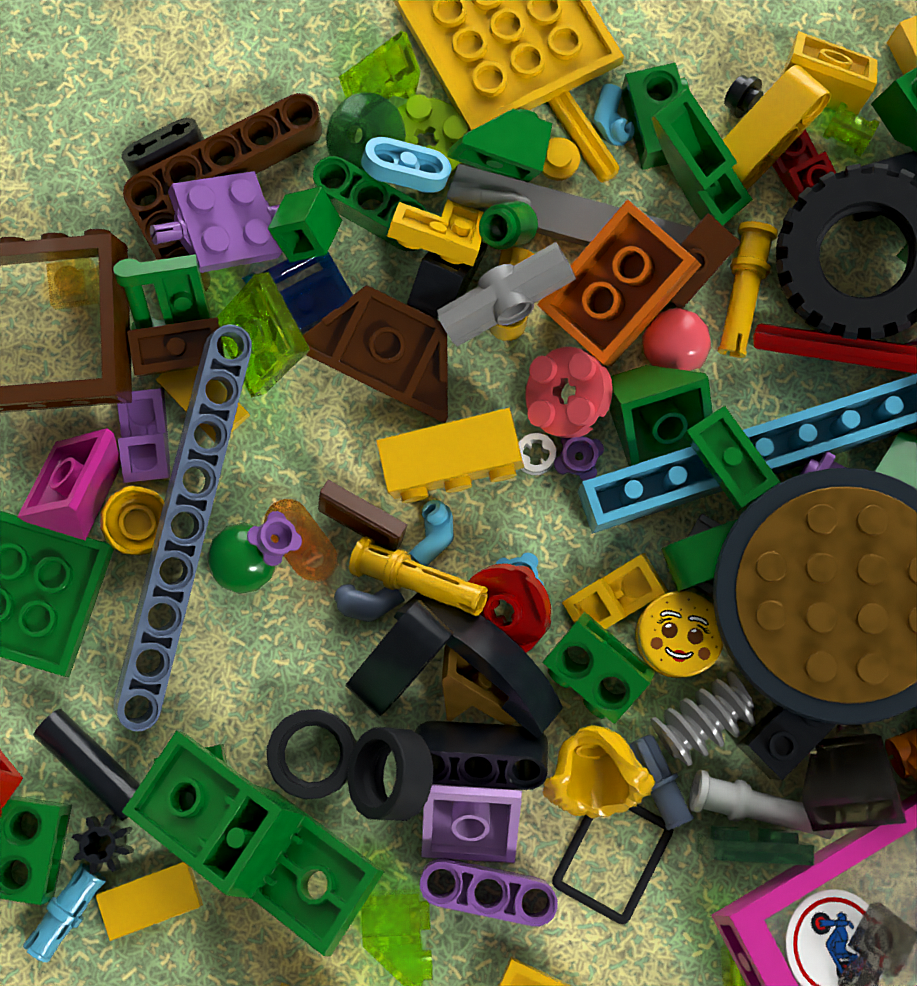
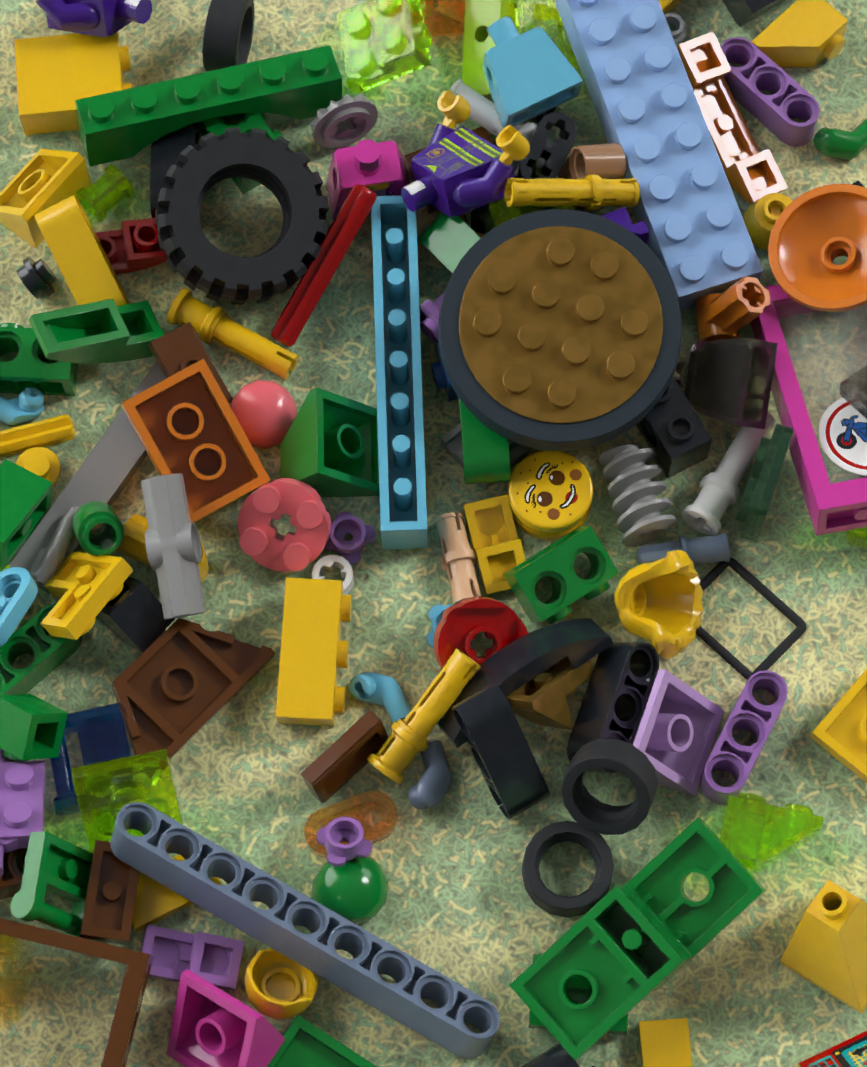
camera: 70 degrees left, 10 degrees down
(587, 565) = (457, 556): none -> light nougat pin
(731, 458) = (402, 388): green plate -> none

